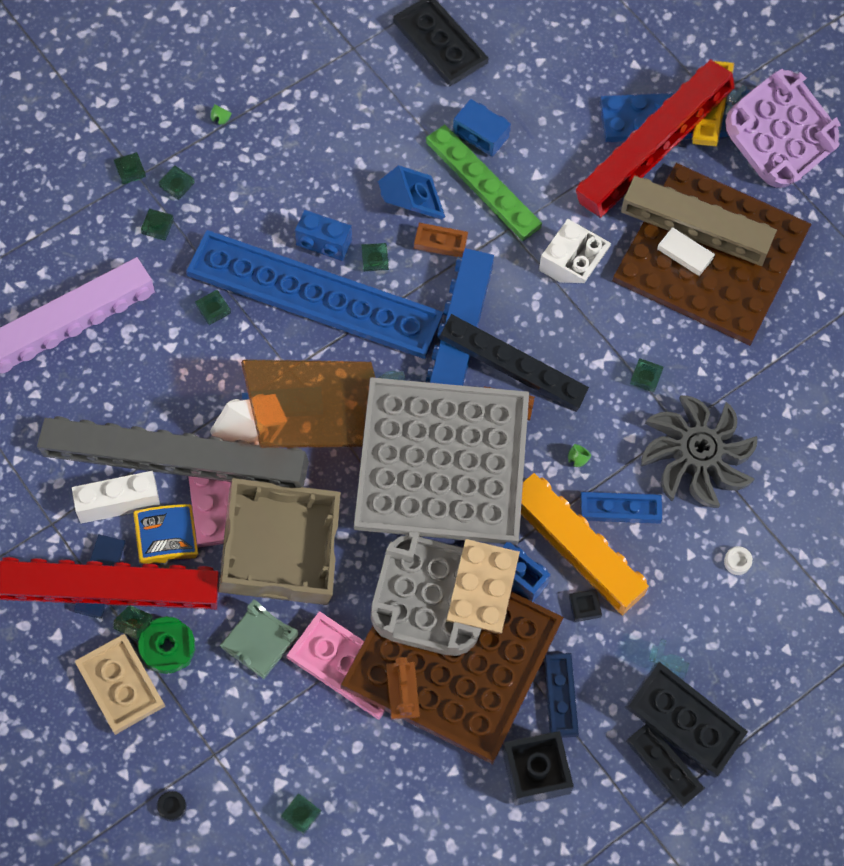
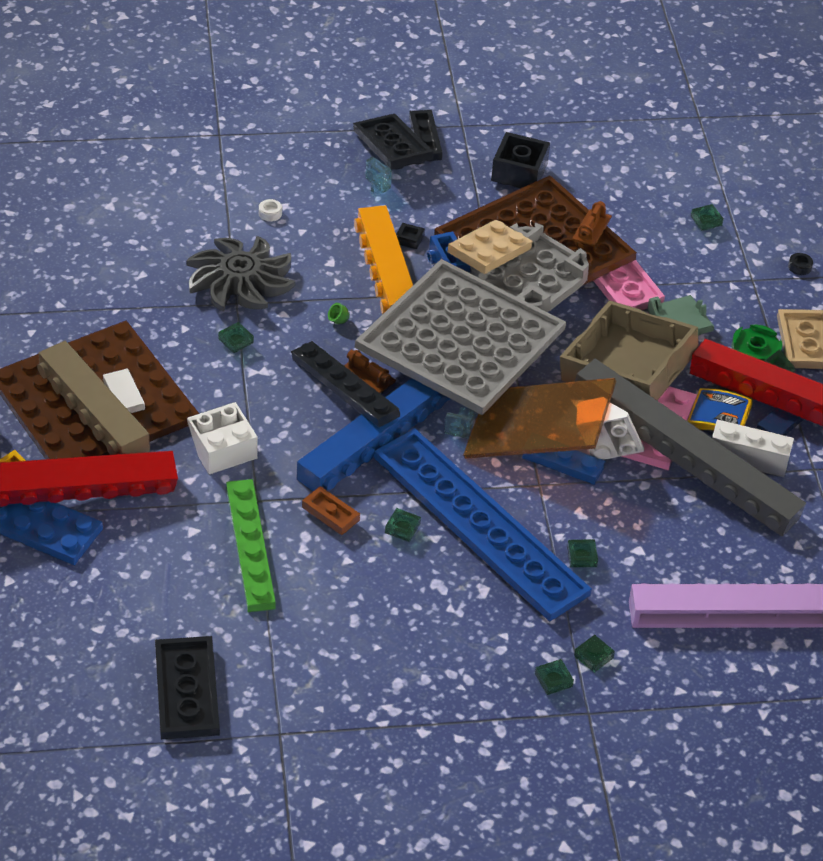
camera: 150 degrees left, 20 degrees down
(129, 168) = (593, 719): clear green plate -> none
(223, 115) = (467, 720): bright green hinge -> none
(323, 235) = (440, 558): blue brick -> none
(411, 191) = (331, 554): blue slope -> none
(481, 127) = (217, 576): blue brick -> none
(561, 694) = (470, 197): dark blue tile -> none
(621, 507) = (334, 270): blue plate -> none

